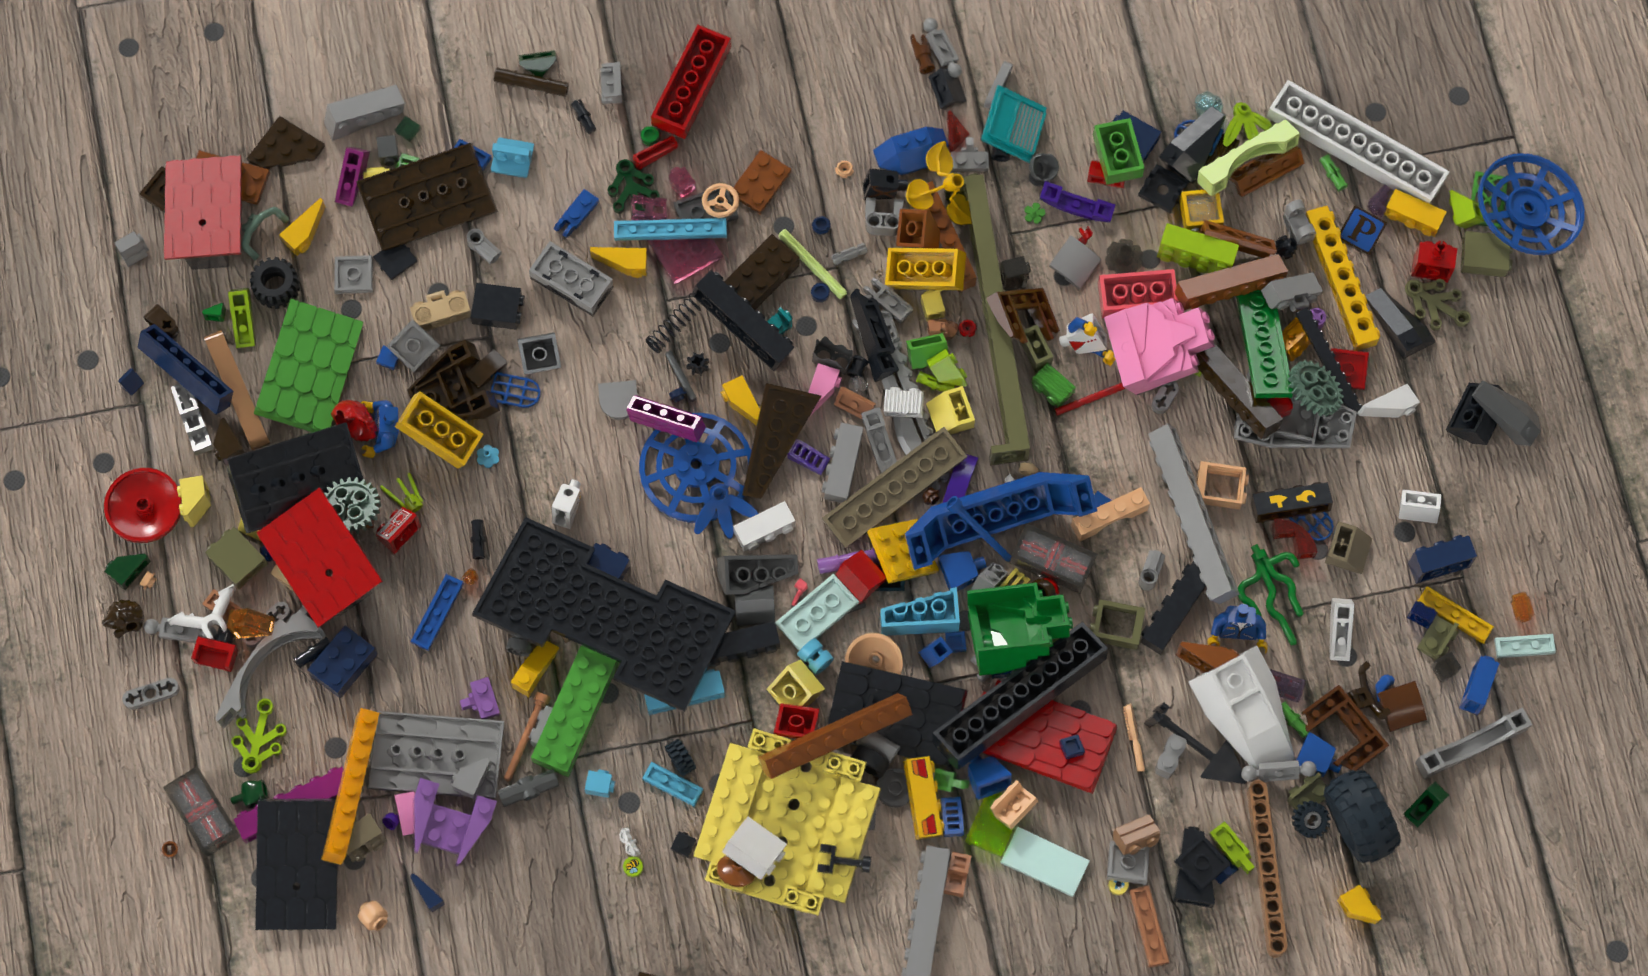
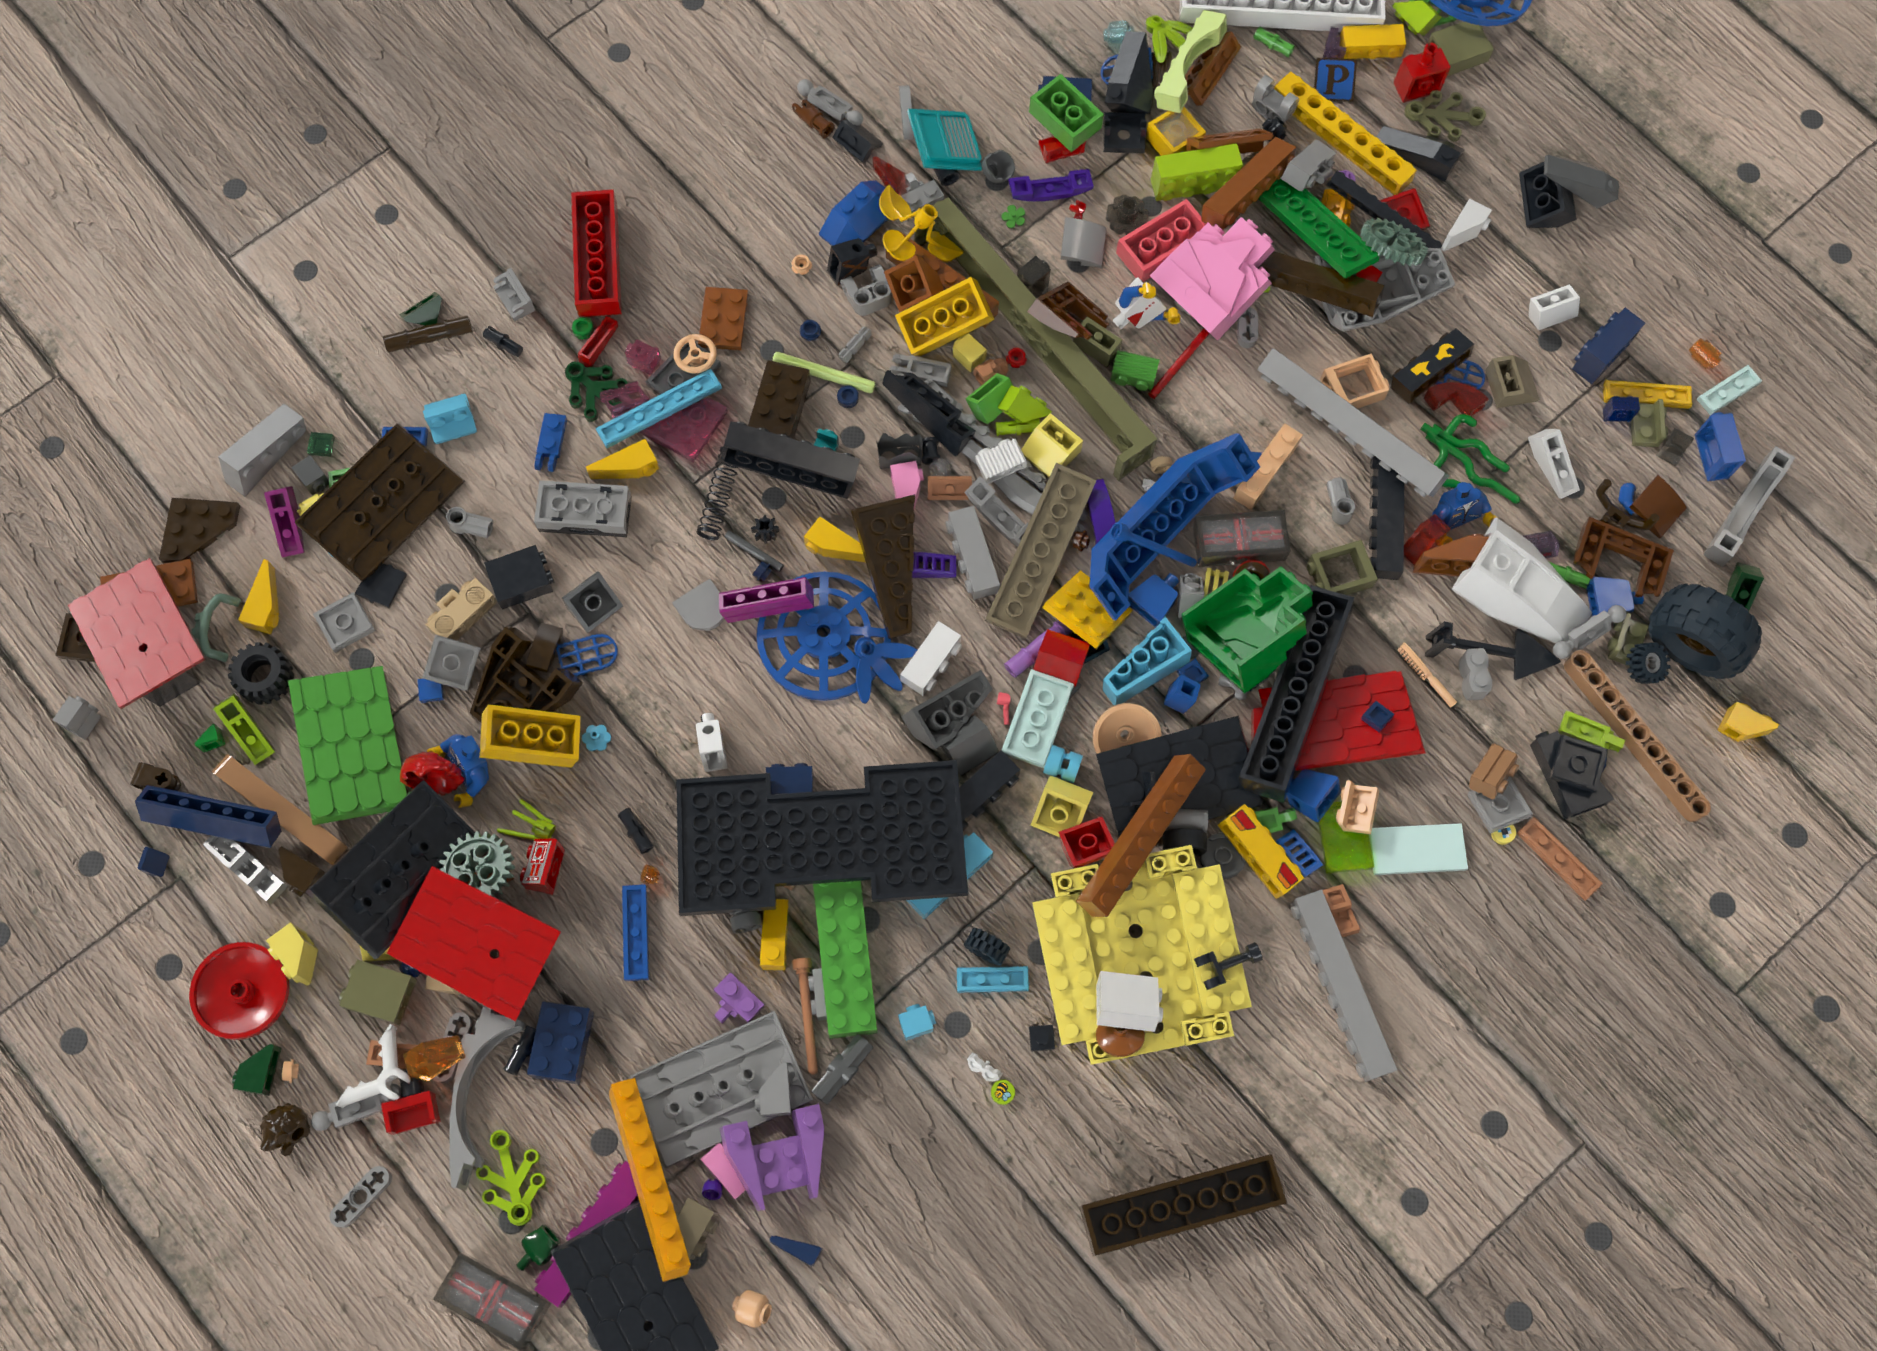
camera: 30 degrees left, 0 degrees up
(1197, 631) = (1425, 537): none -> clear red slope

